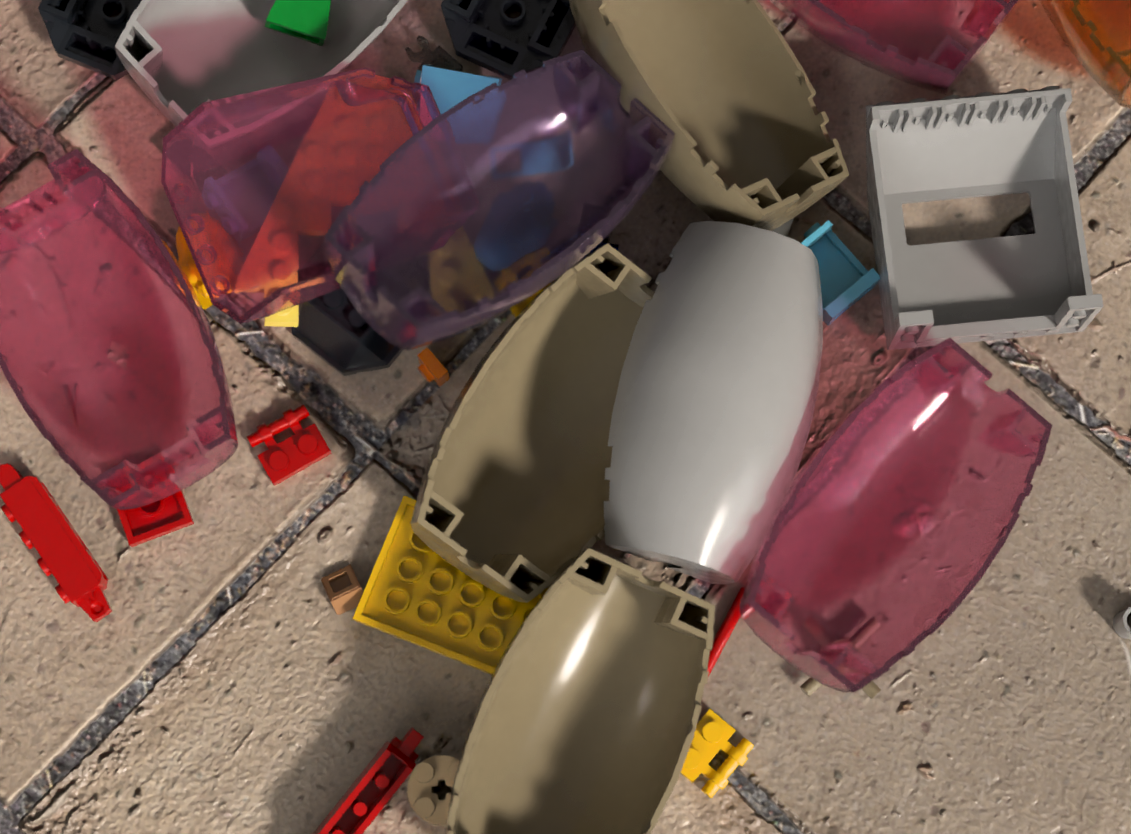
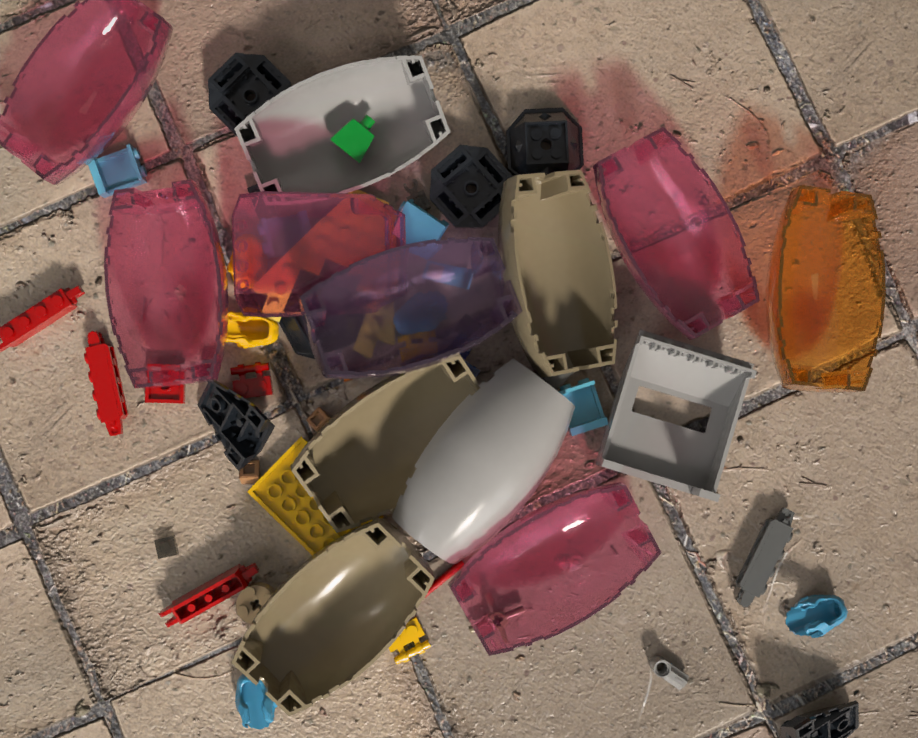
camera: 20 degrees right, 10 degrees up
(255, 765) = (166, 547): none -> clear smoke plate
(259, 358) = (251, 331): none -> yellow hair
(291, 511) = (236, 421): none -> black wedge
(417, 460) = (318, 419): none -> medium nougat slope

